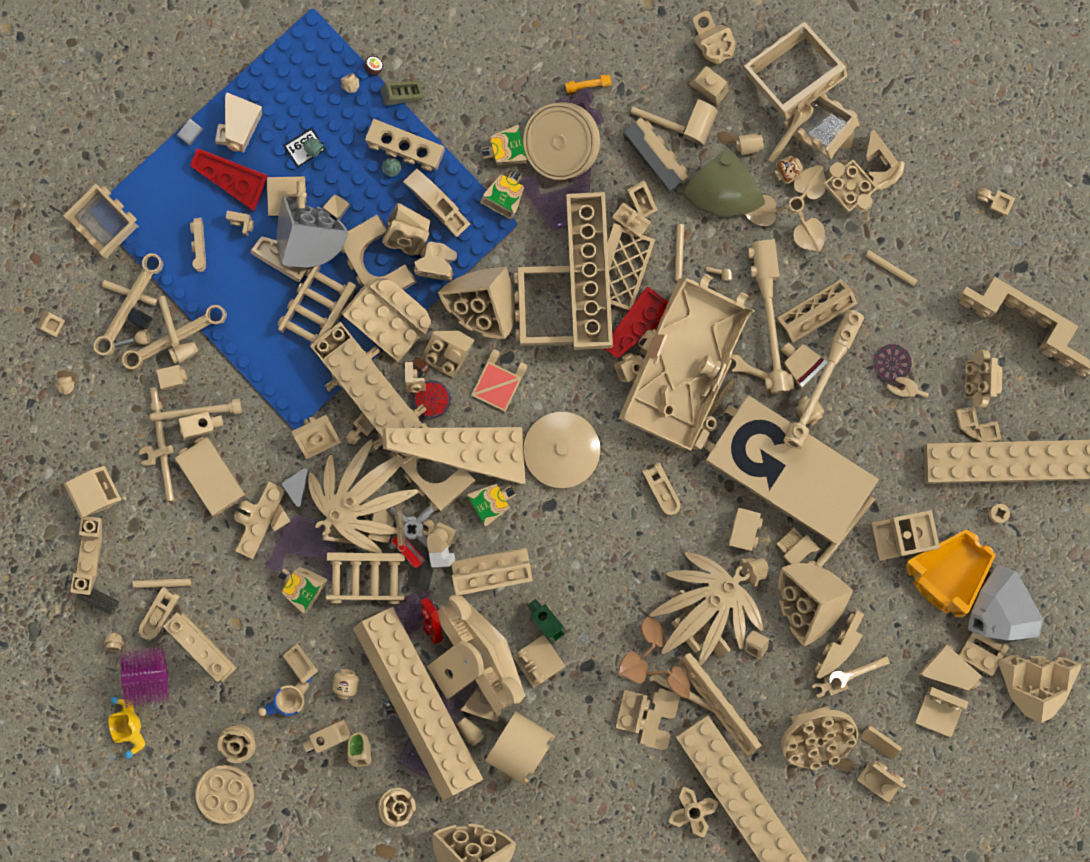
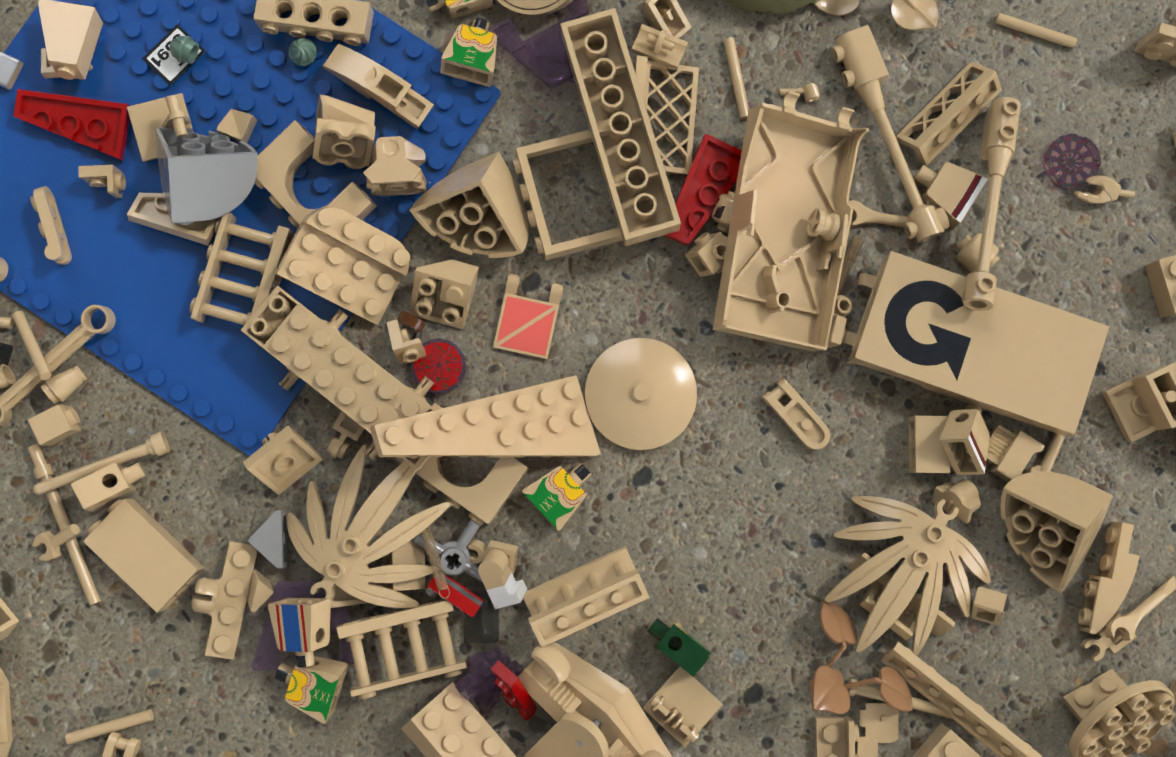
camera: 20 degrees left, 0 degrees up
(304, 546) = (301, 626): none -> tan torso
(767, 532) = (966, 440): none -> tan torso

